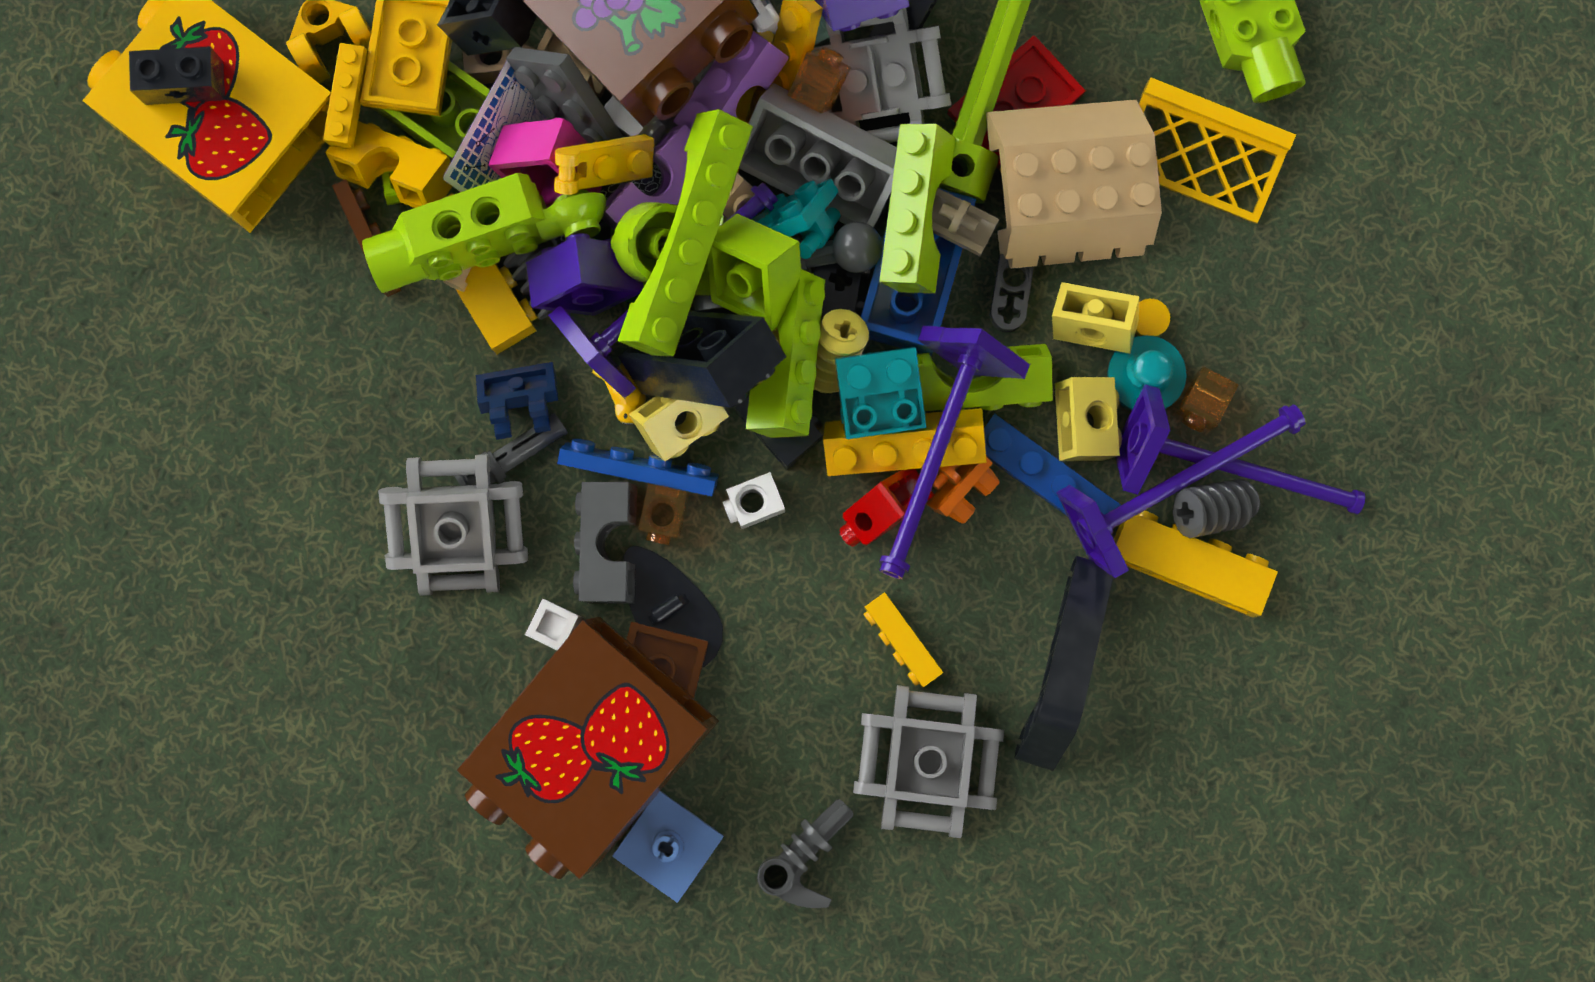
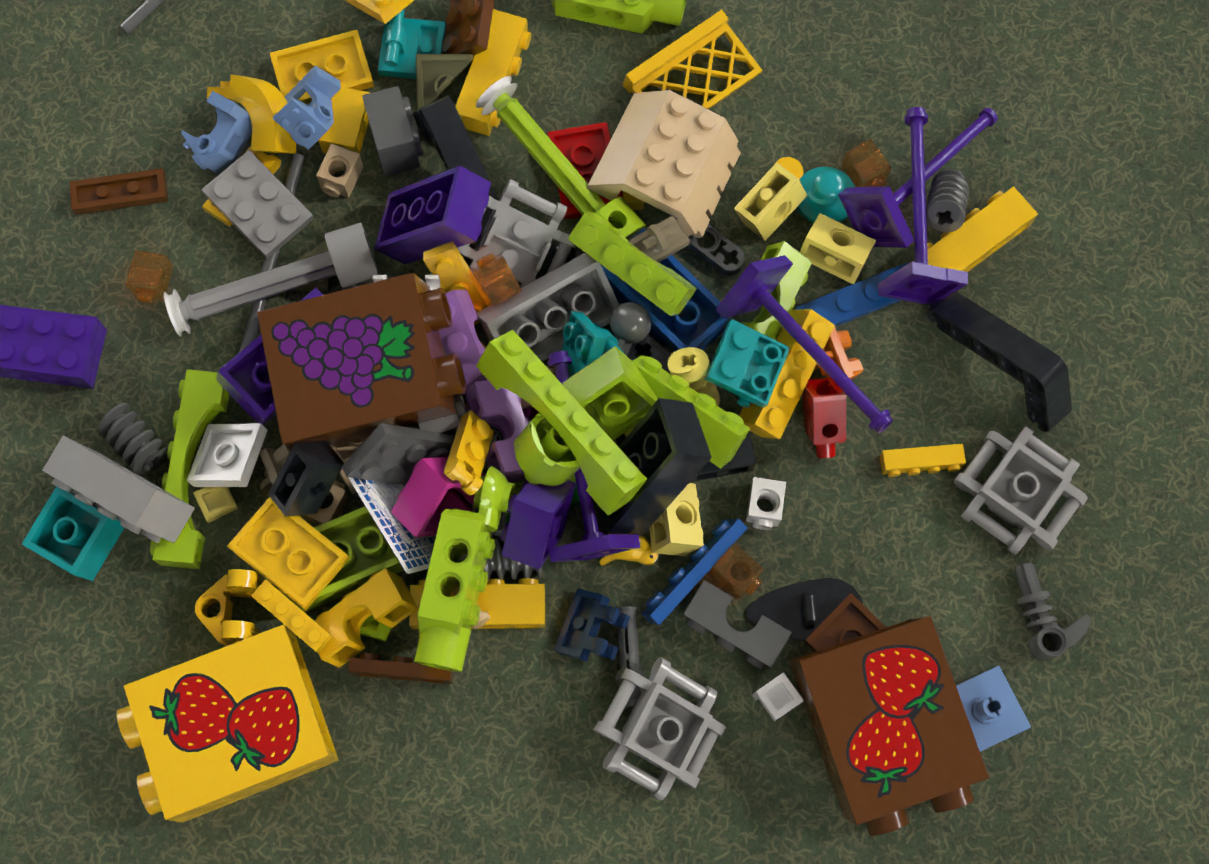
camera: 60 degrees left, 10 degrees down
(176, 75) = (198, 730): black brick -> none

